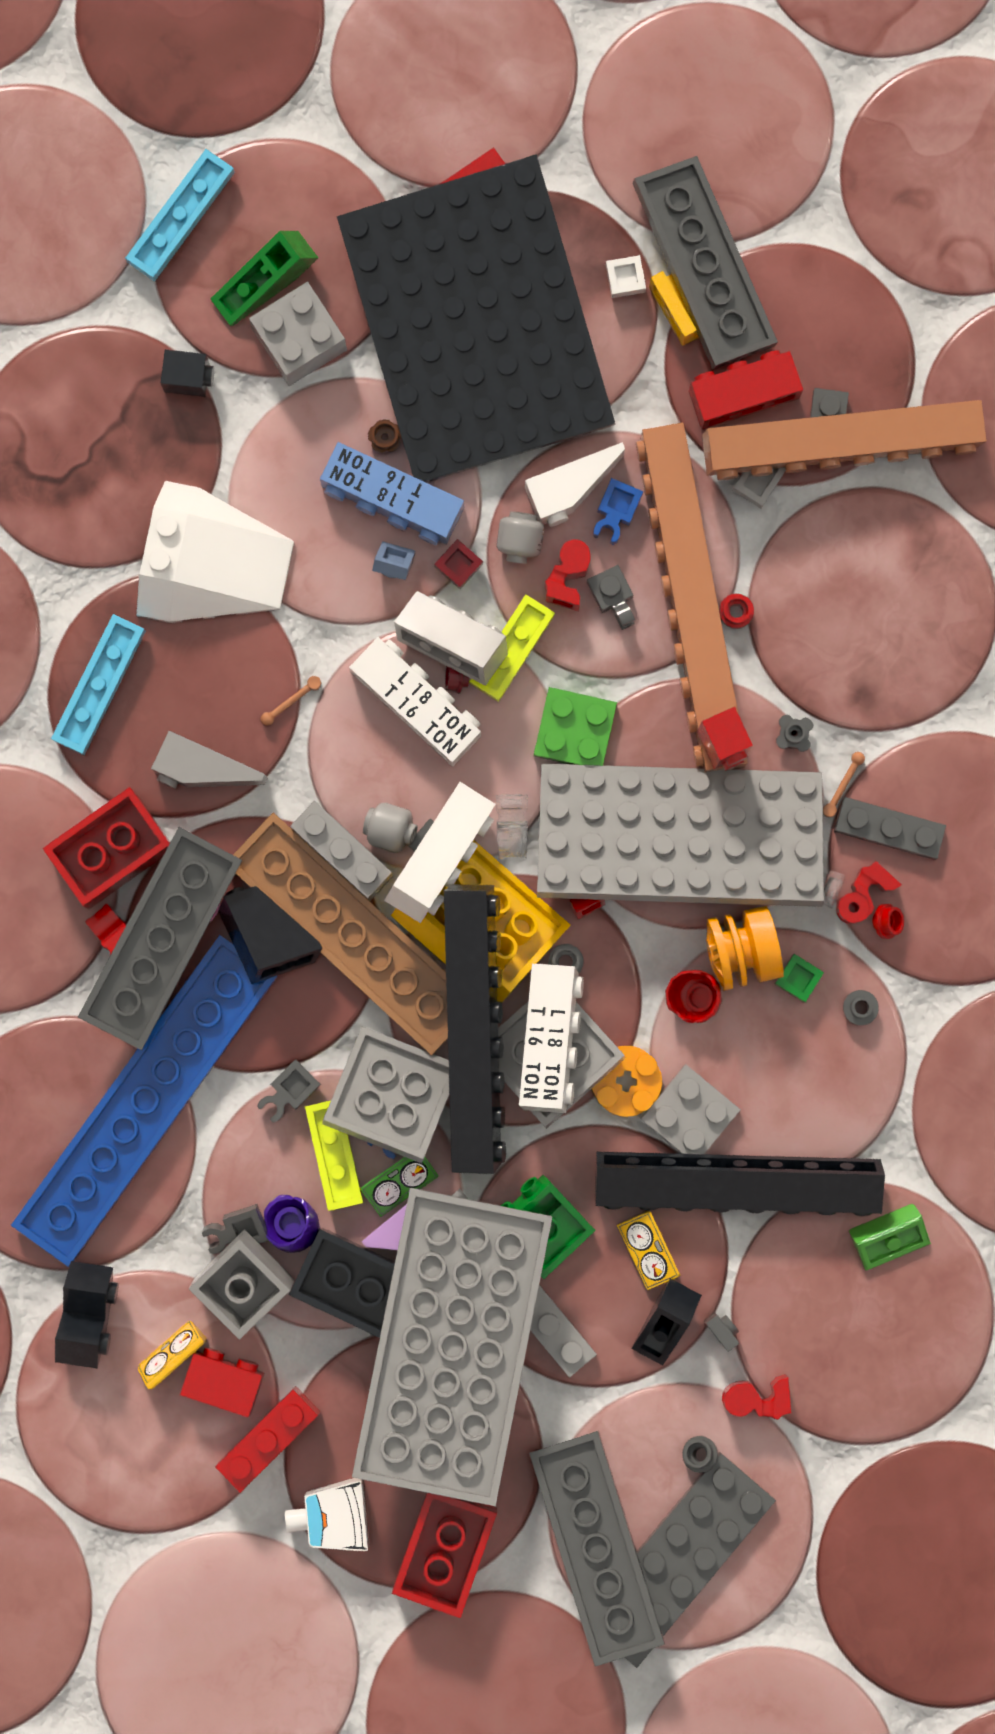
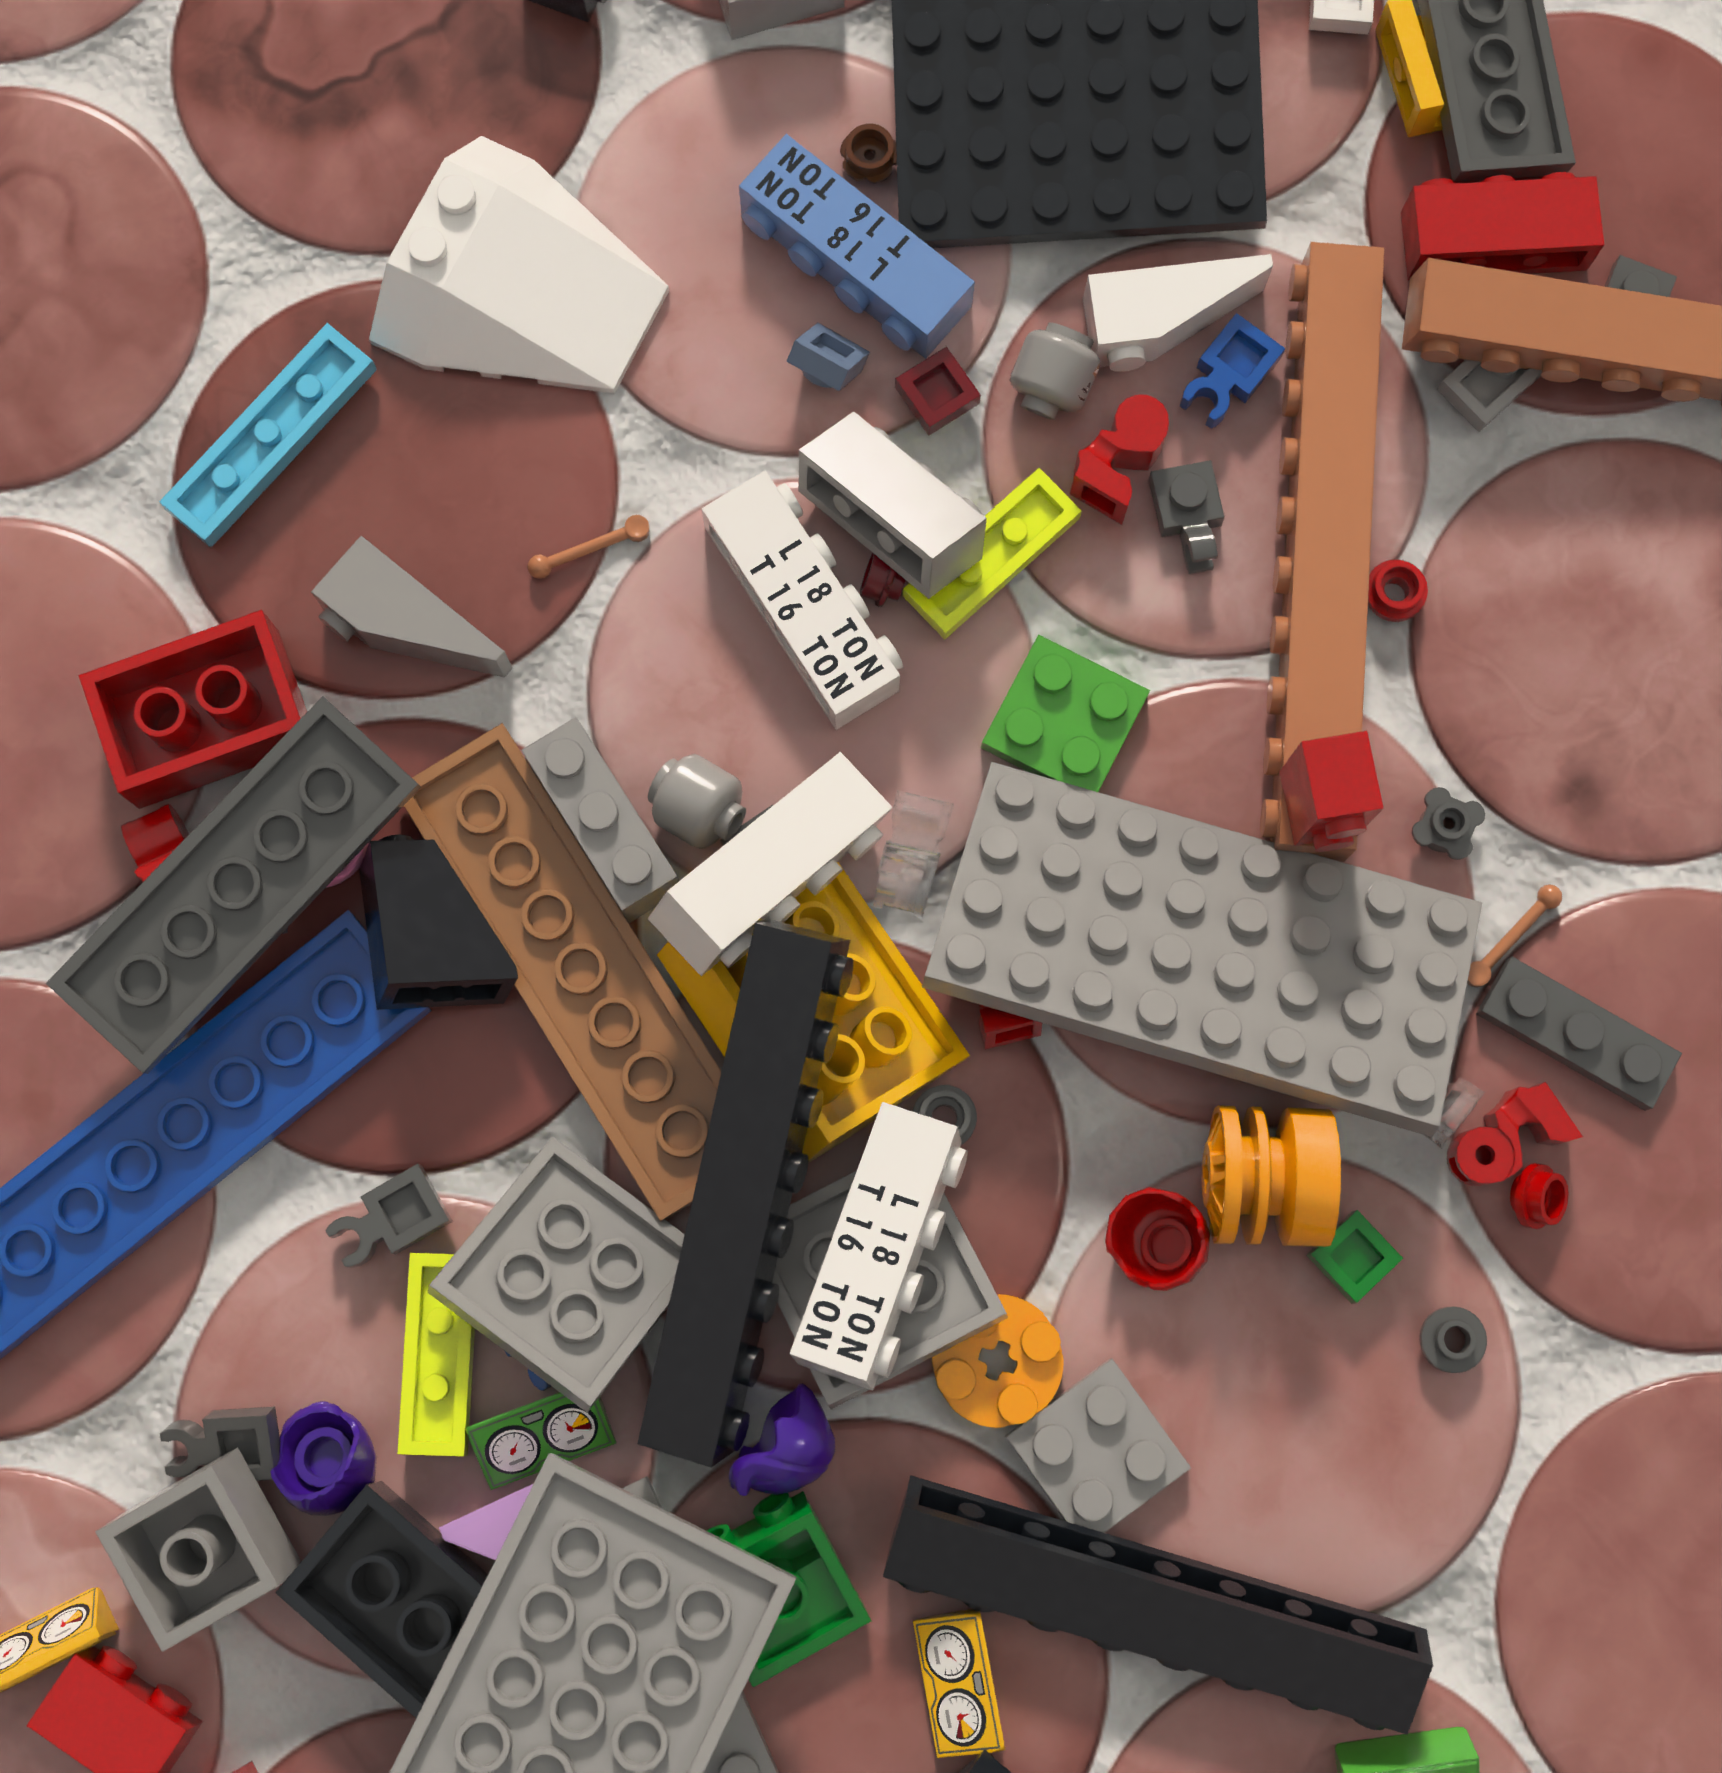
camera: 15 degrees right, 5 degrees down
(531, 1154) = (791, 1449): none -> dark purple hair

